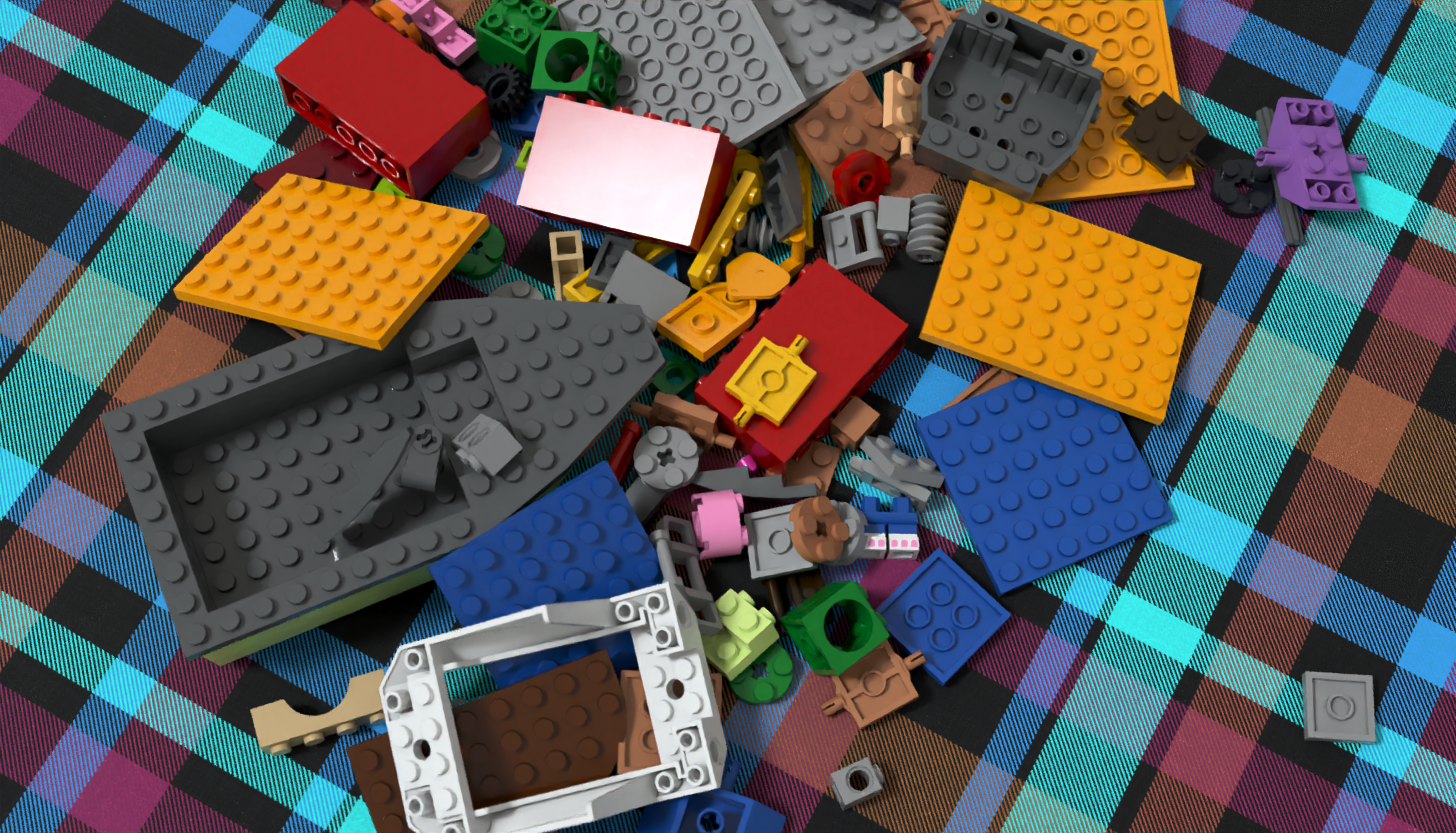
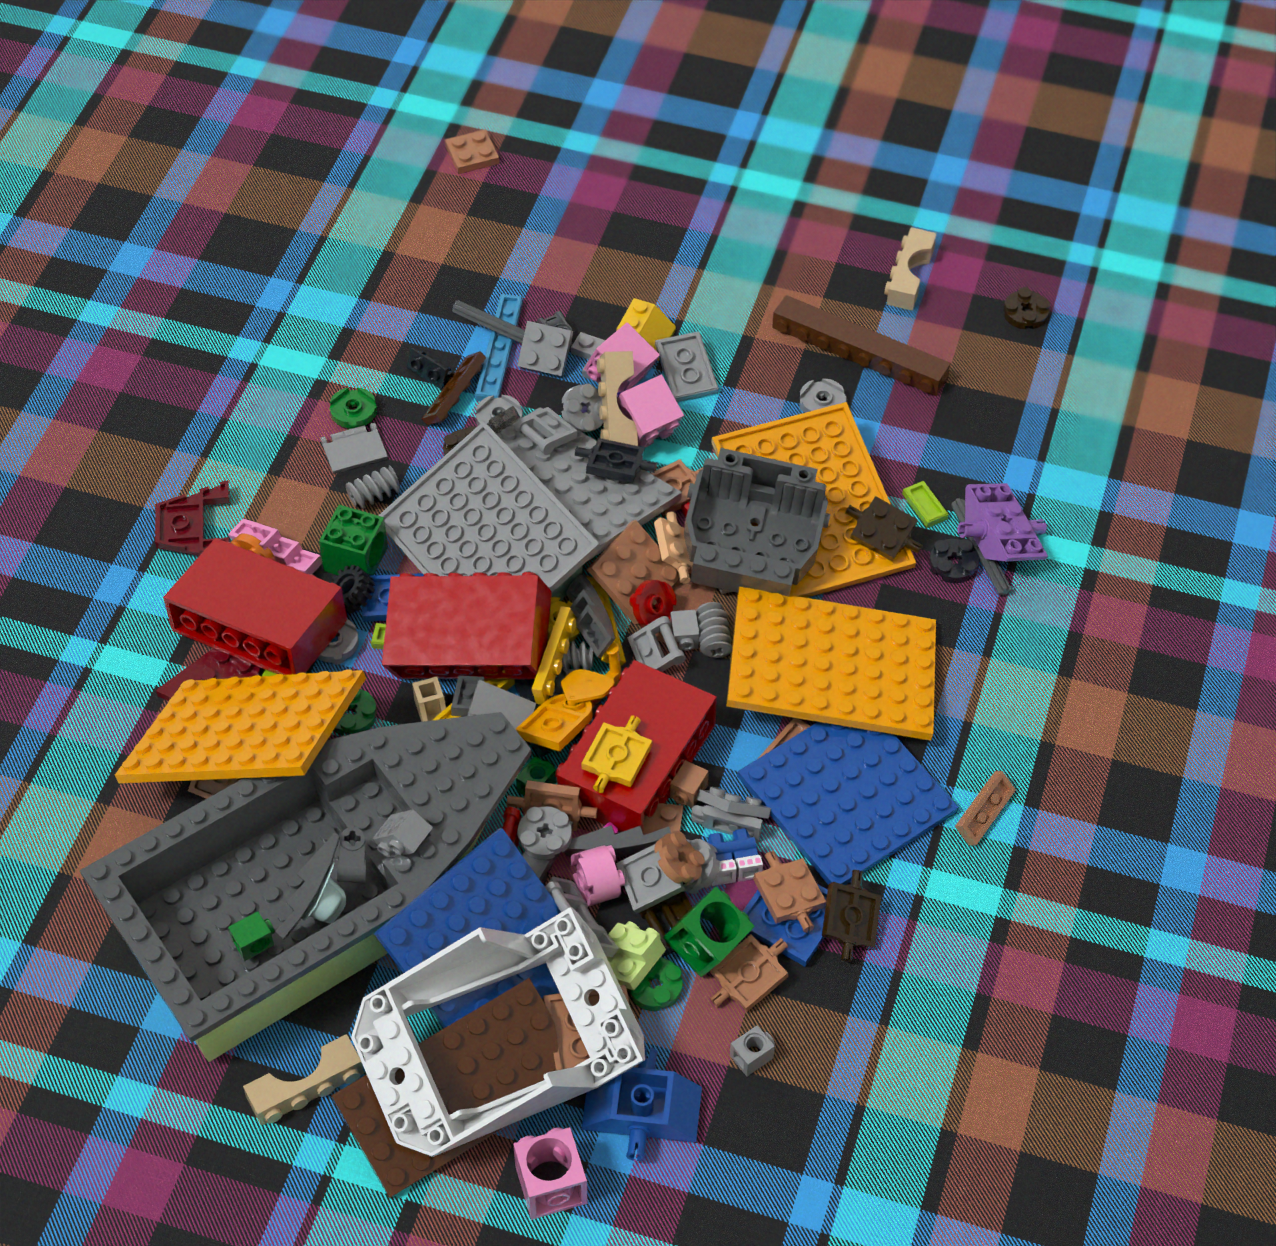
camera: 10 degrees left, 15 degrees down
(291, 529) = (252, 935): none -> green brick
(387, 507) = (328, 902): none -> light aqua piece
(563, 53) = (400, 543): green brick -> none
(944, 590) = (789, 891): none -> nougat plate
(1011, 637) = (851, 915): none -> dark brown plate
(1206, 526) = (985, 808): none -> nougat plate
(1223, 106) = (925, 504): none -> lime tile
(1338, 707) = (1121, 921): light grey plate -> none

